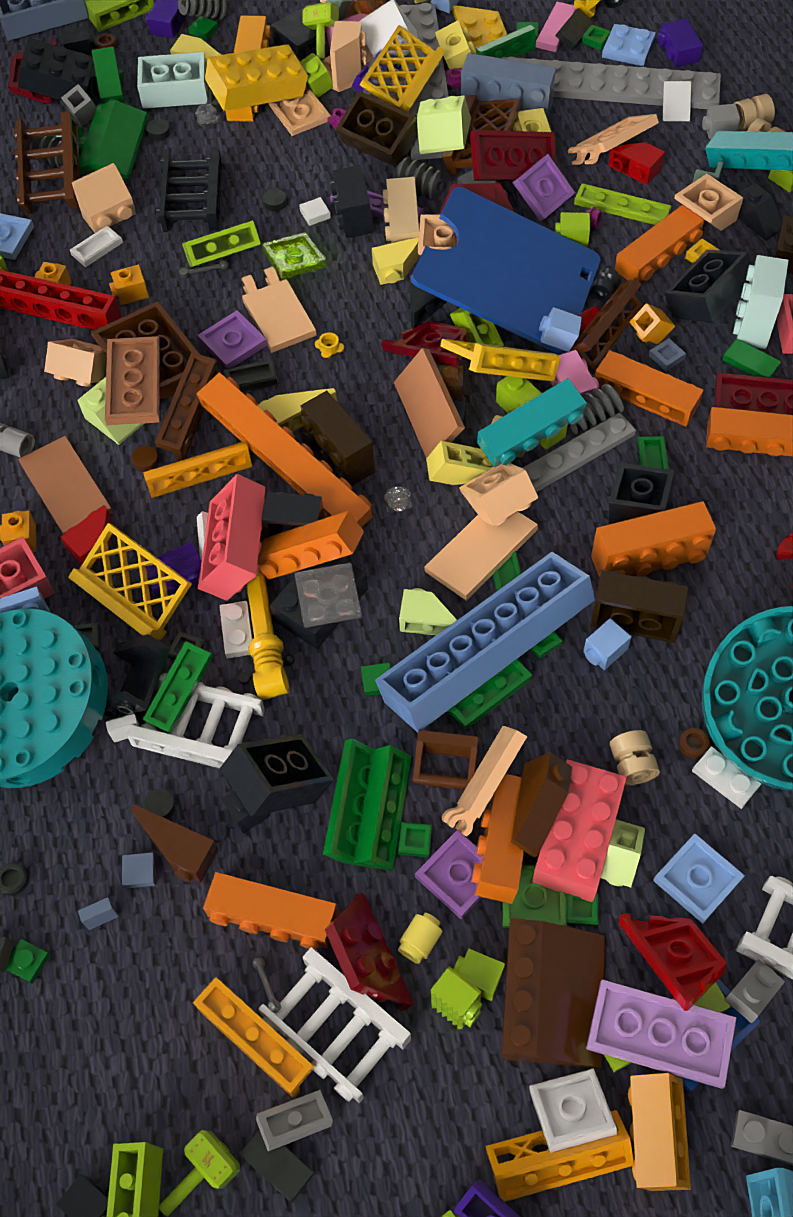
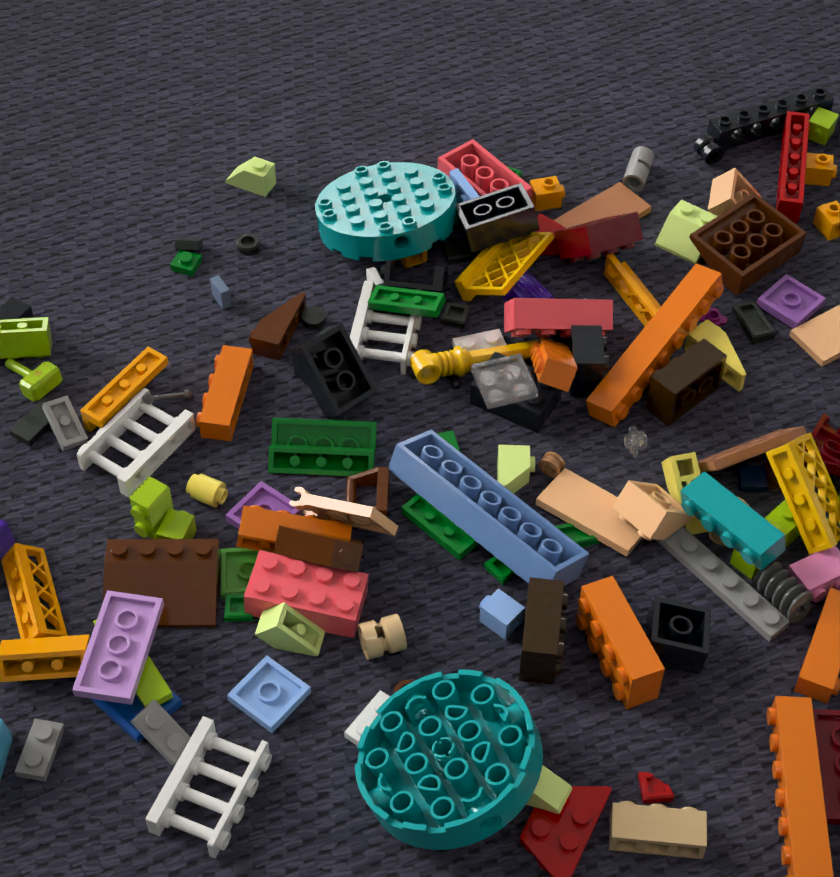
camera: 80 degrees right, 10 degrees down
(72, 573) = (497, 217): none -> black brick
(119, 482) = (598, 236): none -> dark red brick
(132, 381) = (705, 225): nougat tile -> none
(138, 870) = (256, 311): sand blue tile -> none
(145, 458) = (641, 262): reddish brown tile -> none
(185, 408) = (675, 267): reddish brown fence -> none
(329, 345) = (807, 373): yellow plate -> none
(365, 955) = (192, 449): dark red wing -> none
(415, 839) = (294, 479): green tile -> none
(419, 577) = (551, 464): none -> medium nougat bush
(572, 1110) = (65, 599): white tile -> none
(653, 452) = (738, 657): green tile -> none
(677, 955) = (190, 667): red wing -> none

